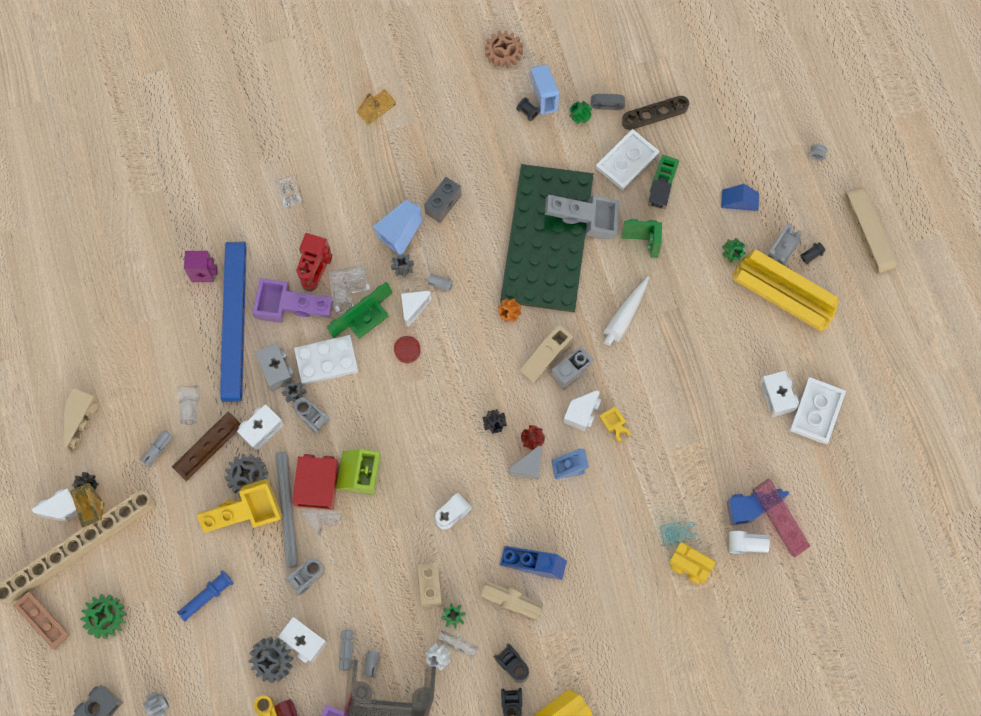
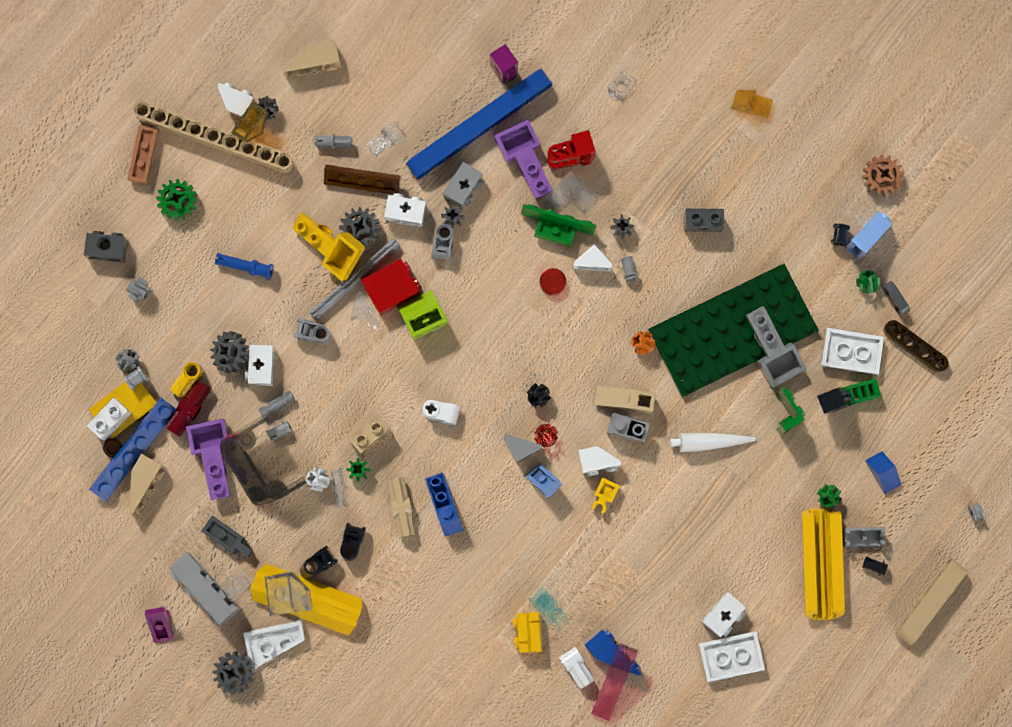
camera: 55 degrees right, 10 degrees up
(326, 360) = (498, 222): white plate -> none
(399, 226) = (654, 201): light blue slope -> none

